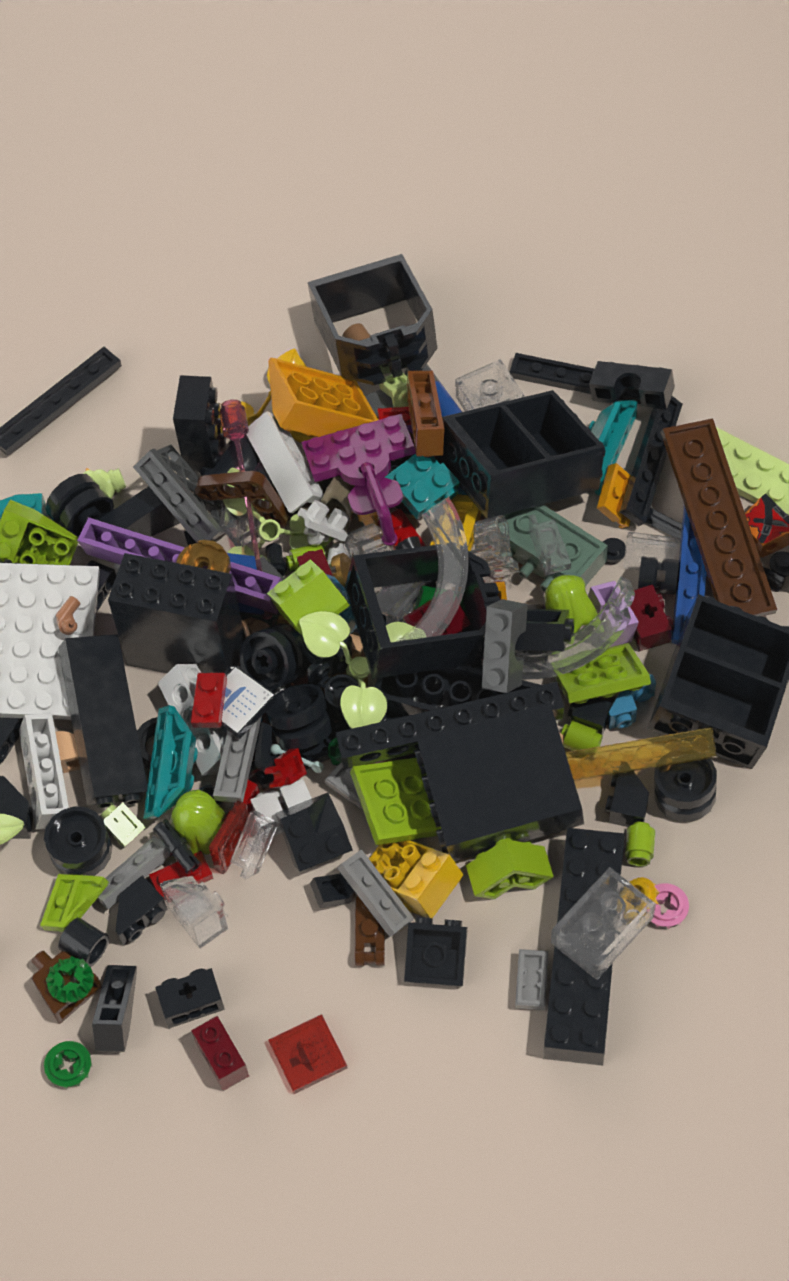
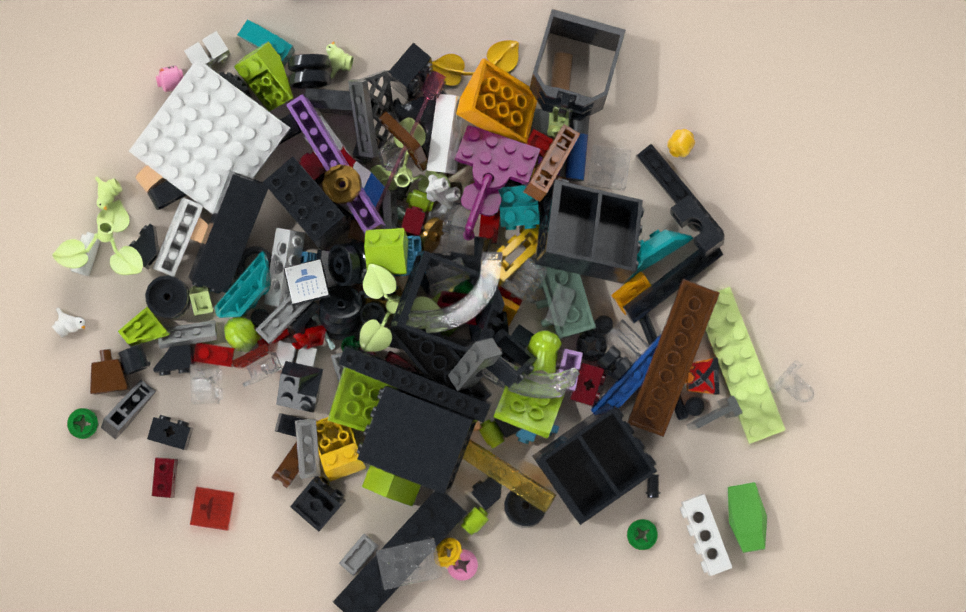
camera: 30 degrees right, 25 degrees up
(65, 616) = (247, 151): nougat arm -> none
(72, 991) = (118, 384): green gear -> none
(177, 846) = (219, 341): black pin -> none
(209, 700) = (290, 271): red plate -> none
(547, 331) = (681, 143): none -> yellow head
(625, 569) = (600, 345): none -> black gear

